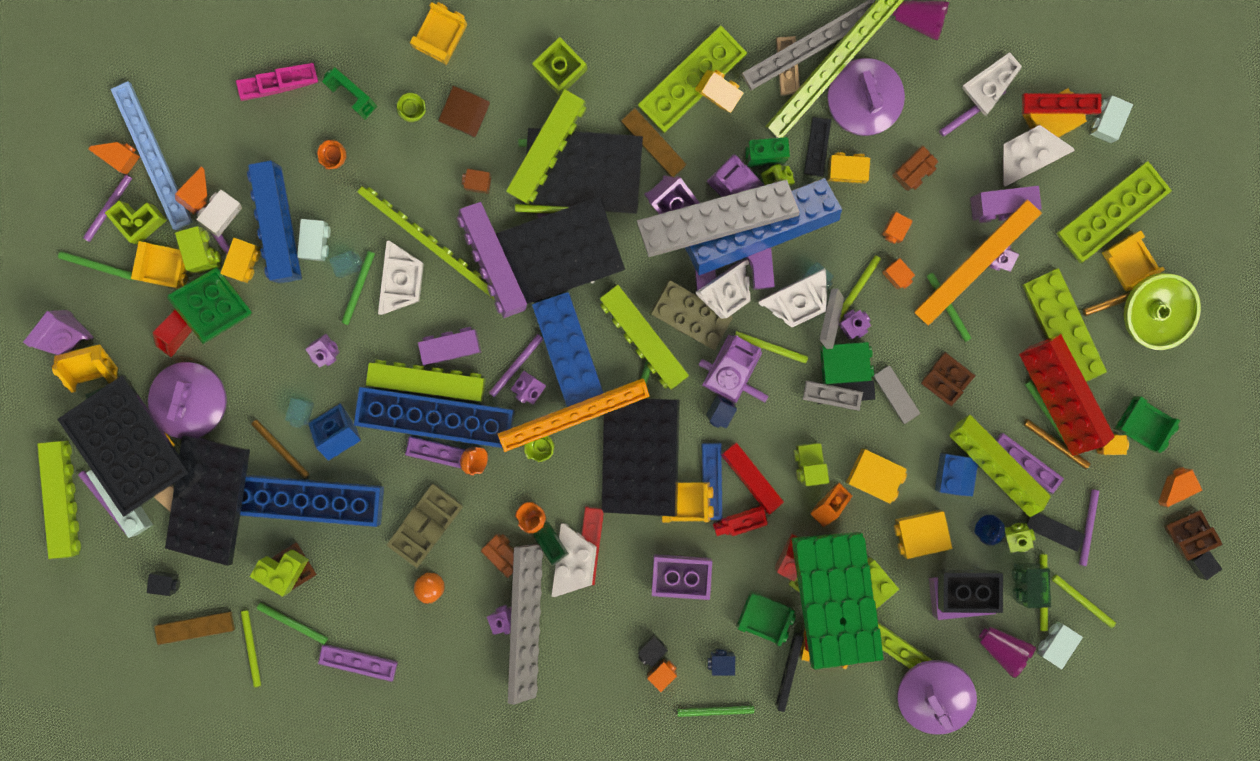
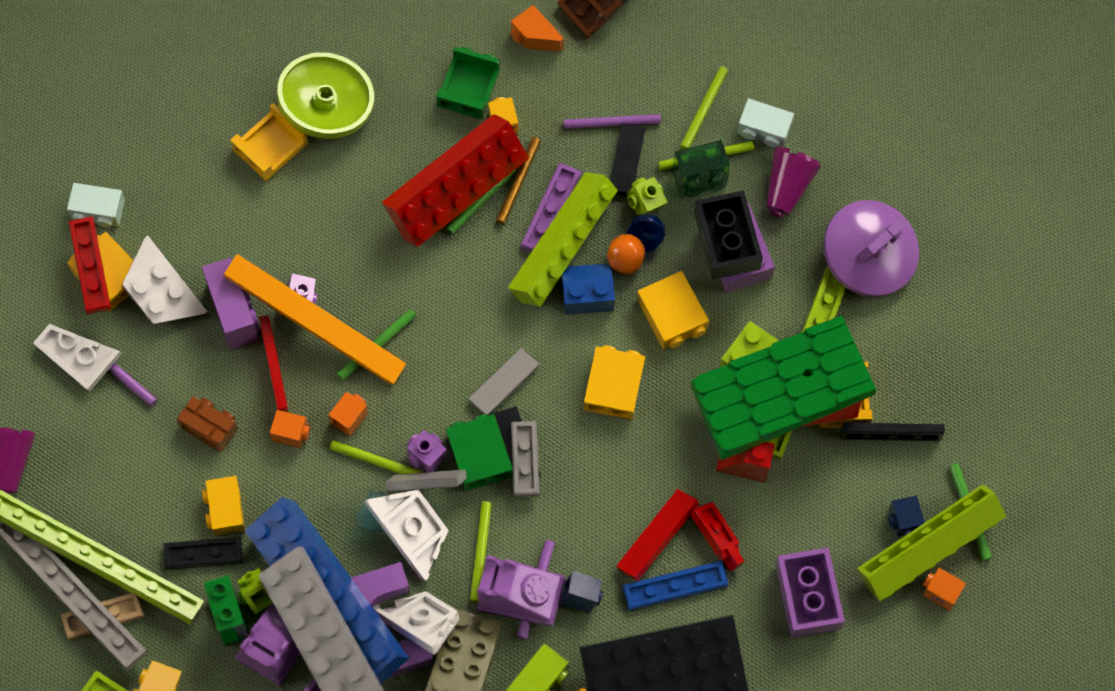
camera: 105 degrees left, 20 degrees down
(652, 650) = (916, 609): black brick -> none
(693, 502) = (709, 599): yellow panel -> none
(697, 677) = (931, 542): none -> lime brick
(766, 618) = (833, 476): green panel -> none
(811, 464) = (622, 464): lime brick -> none
(831, 505) = (666, 428): orange slope -> none
(866, 97) = (126, 505): medium lavender bracket -> none
(948, 378) = (468, 325): reddish brown slope -> none
(949, 227) = (273, 363): none -> red tile
(976, 510) = (625, 254): none -> orange hair
(1060, 315) = (360, 208): lime plate -> none
(1106, 304) = (330, 161): pearl gold bar -> none
(1114, 212) = (213, 177): lime plate -> none

